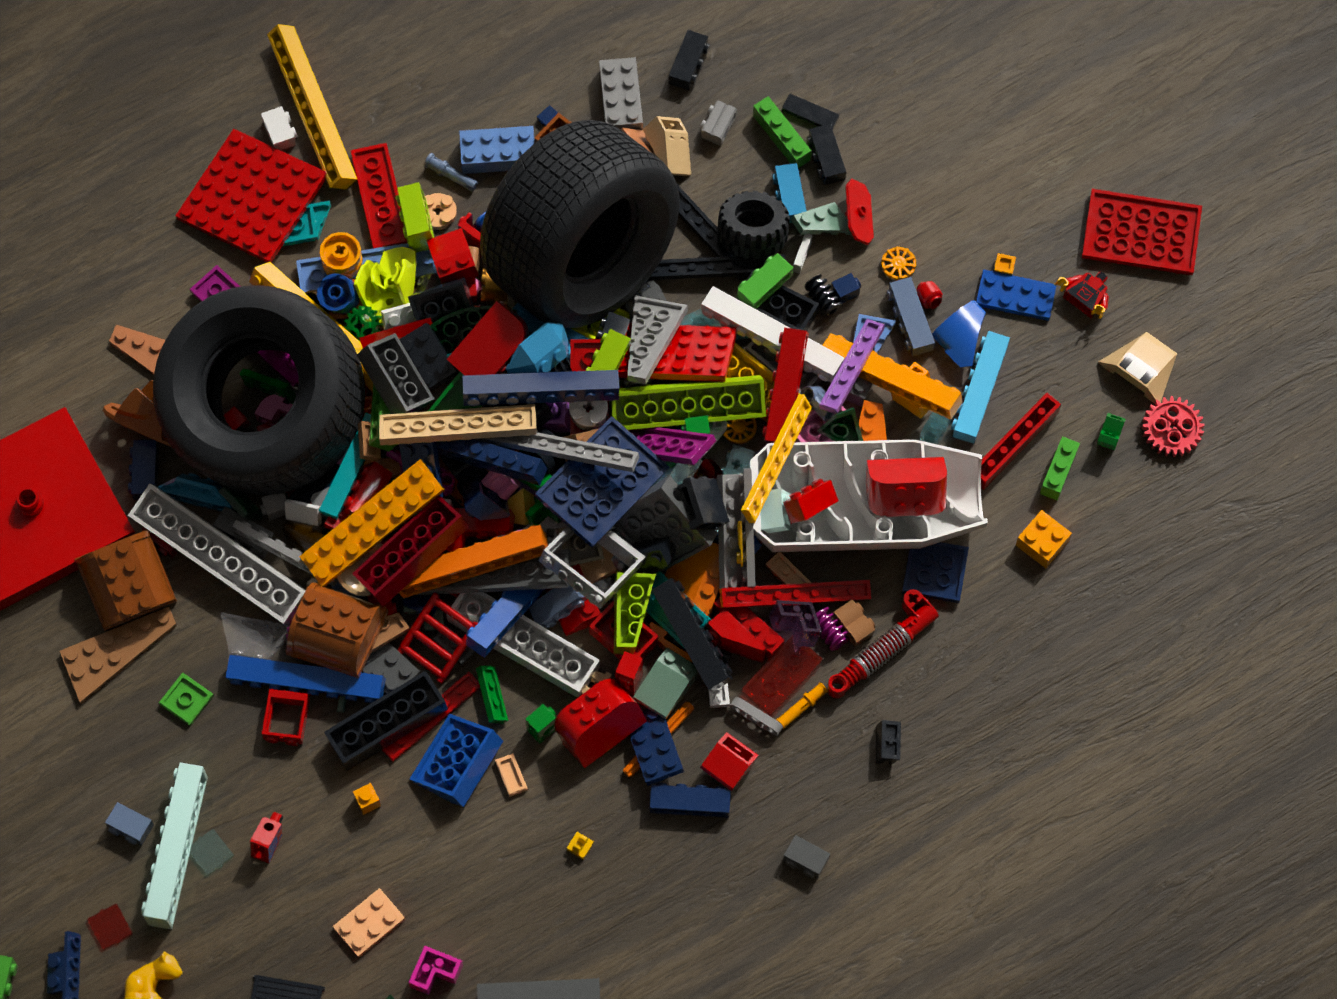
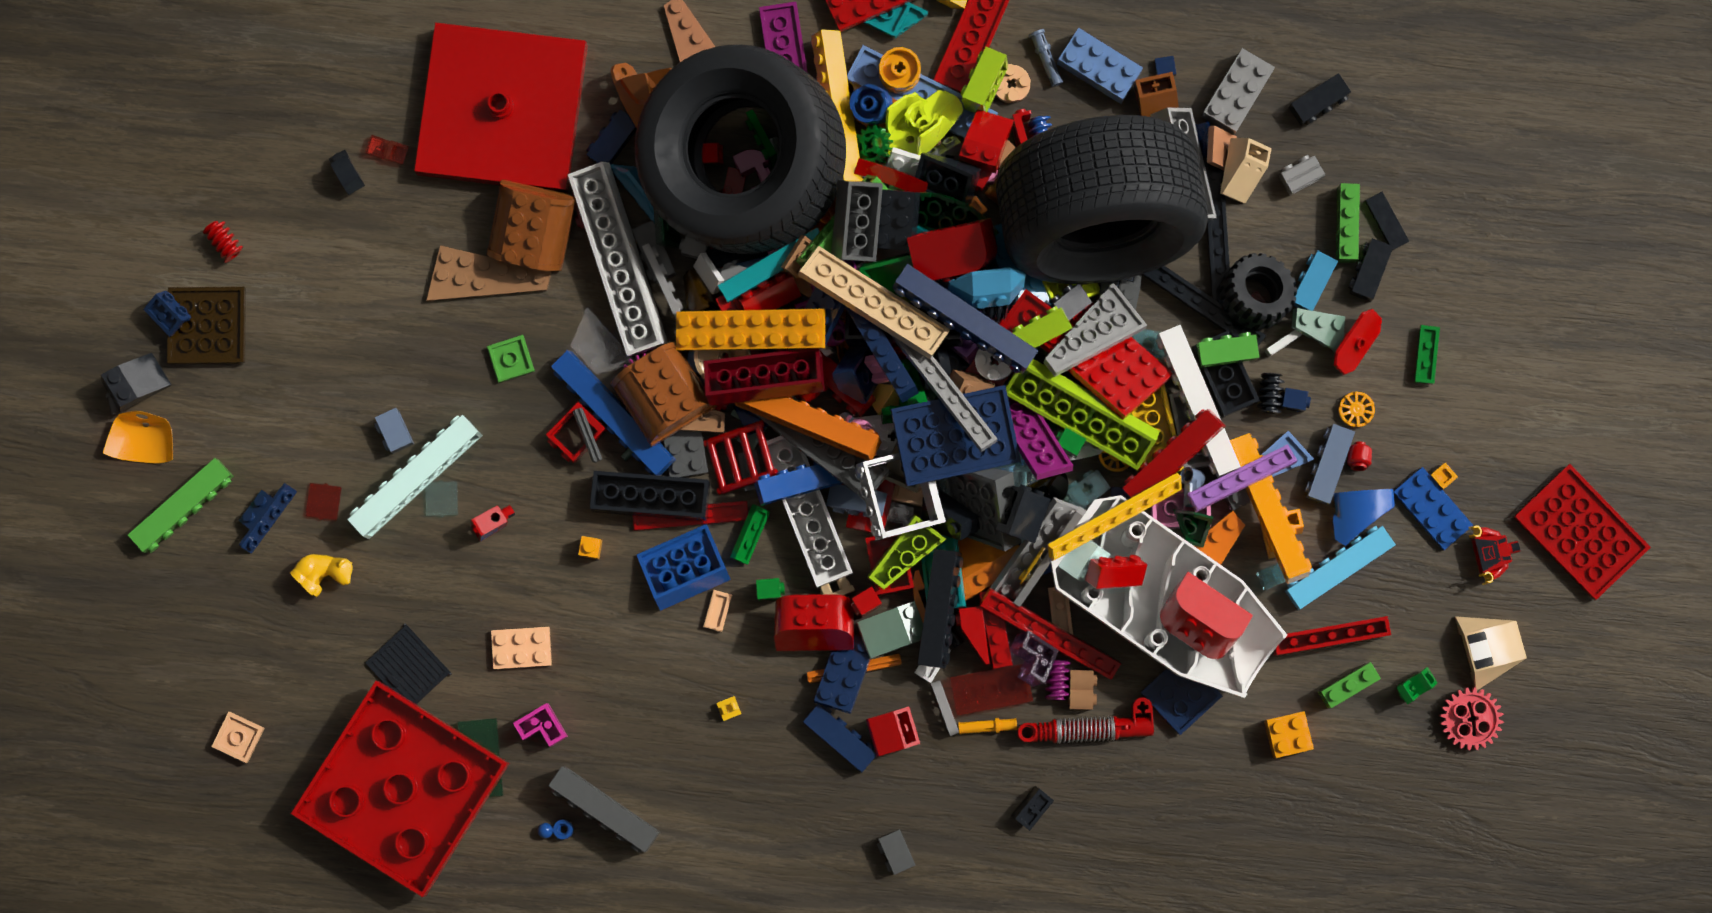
camera: 40 degrees right, 15 degrees up
(297, 708) = (587, 435): none -> dark grey axle
(919, 186) = (1427, 354): none -> green plate

